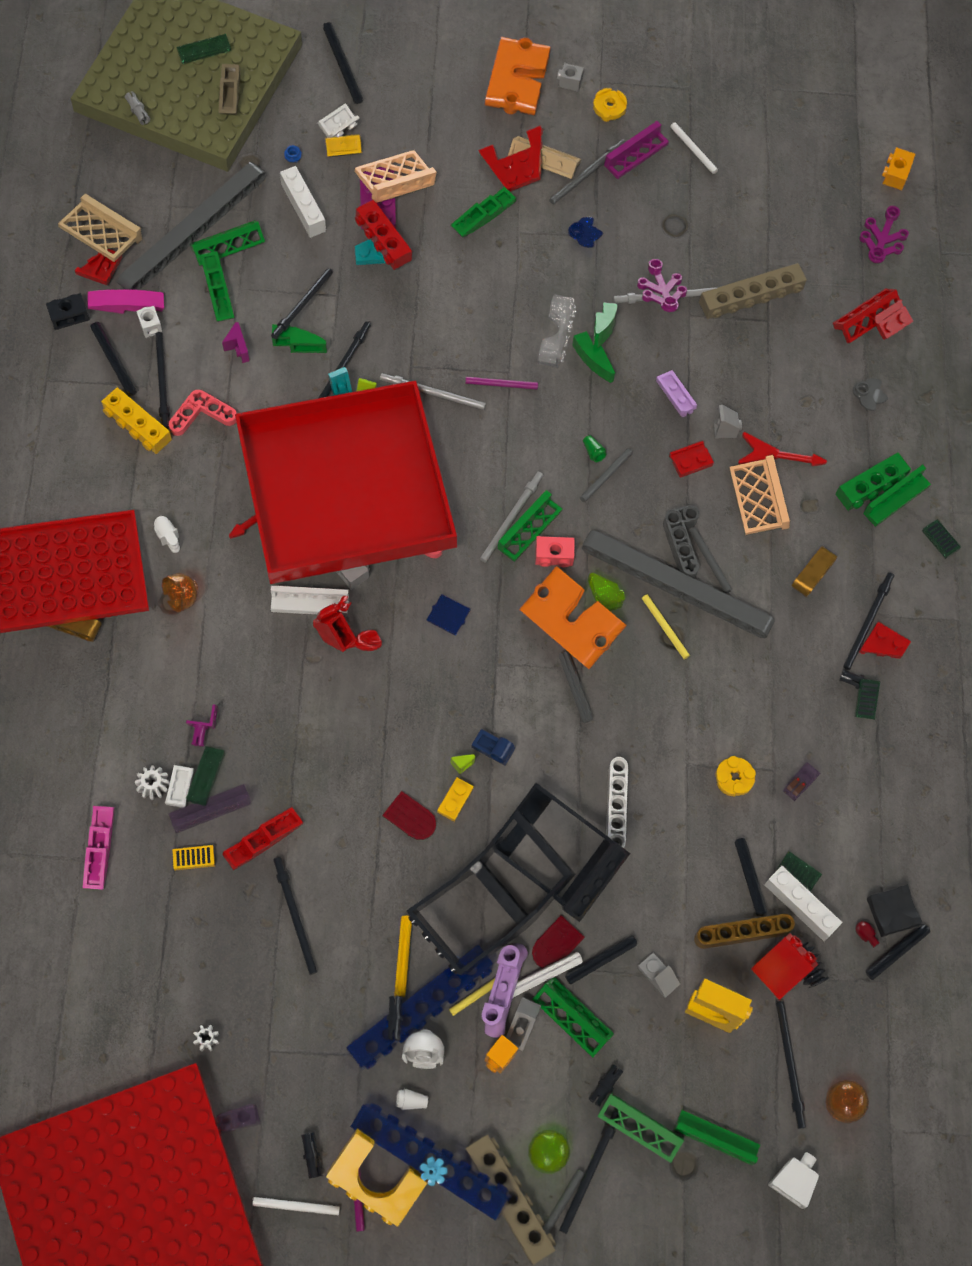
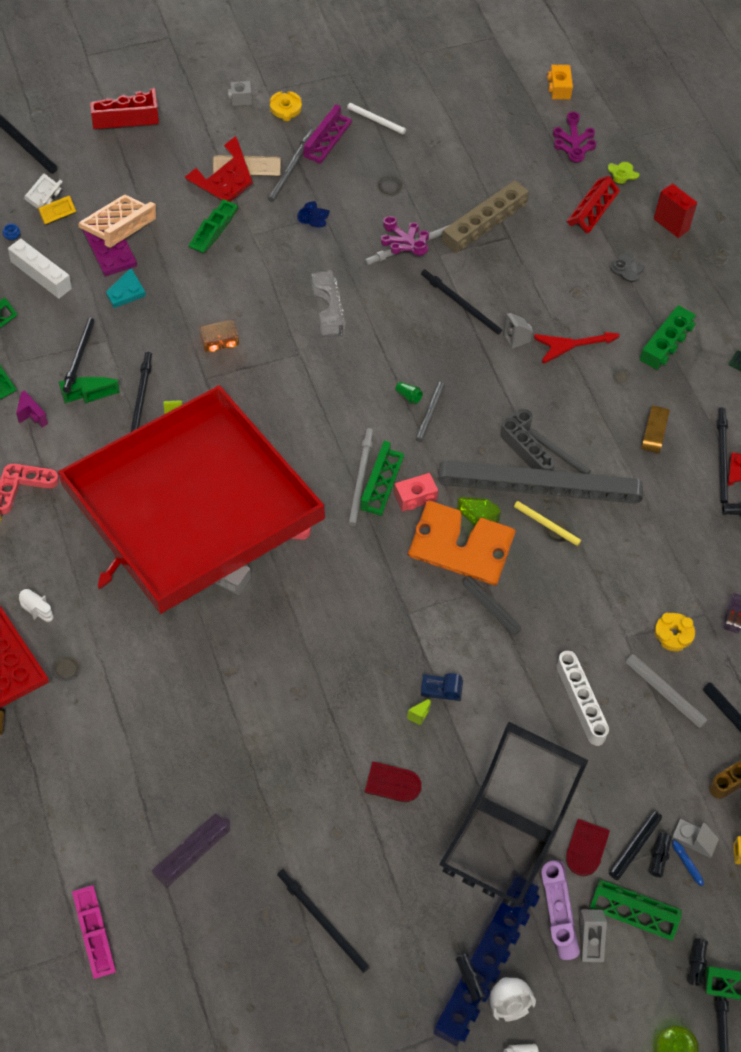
camera: 20 degrees left, 10 degrees down
(146, 778) = (130, 843): white gear -> none
(179, 786) = (151, 840): white plate -> none
(180, 590) = (72, 653): clear orange cylinder -> none
(193, 857) = (195, 904): yellow tile -> none
(201, 727) = (148, 775): magenta bracket -> none
(205, 776) = (173, 820): clear green tile -> none
(263, 838) = (257, 858): red slope -> none
(304, 599) = (204, 617): white fence -> none
(338, 634) = (244, 634): red torso -> none
(340, 381) = (147, 409): teal plate -> none
(372, 212) = (130, 271): red brick -> none
(403, 957) = (446, 916): yellow axle -> none
(435, 392) = (242, 392): light grey bar -> none
(440, 328) = (219, 336): none -> clear orange brick
(448, 615) = (342, 584): clear blue piece -> none
(451, 61) = (125, 111): none -> red wedge
(455, 799) = (428, 749): yellow plate -> none
(472, 998) = (527, 938): light yellow bar -> none
(500, 1055) = (588, 971): light orange brick -> none
(502, 383) = (298, 364): magenta bar -> none
(512, 73) = (192, 106): orange connector -> none
(547, 973) = (593, 876): white axle -> none
(593, 357) = (371, 314): green slope -> none
(593, 876) = (604, 750): black window -> none
(604, 323) = (368, 282): slope -> none
(618, 978) = (660, 855): none -> black pin
(638, 977) = (679, 849): none -> blue piece
(673, 345) = (436, 282): none -> black bar
(676, 393) = (460, 321): lavender hinge -> none
(691, 459) = (500, 372): red plate -> none
(699, 829) = (666, 690): none -> light grey axle
(775, 496) = (590, 377): light nougat fence -> none
(892, 319) = (616, 201): red plate -> none
(897, 496) = (694, 343): green fence -> none
(915, 289) = (622, 172): none -> lime plate
(944, 351) = (675, 210): none -> red brick

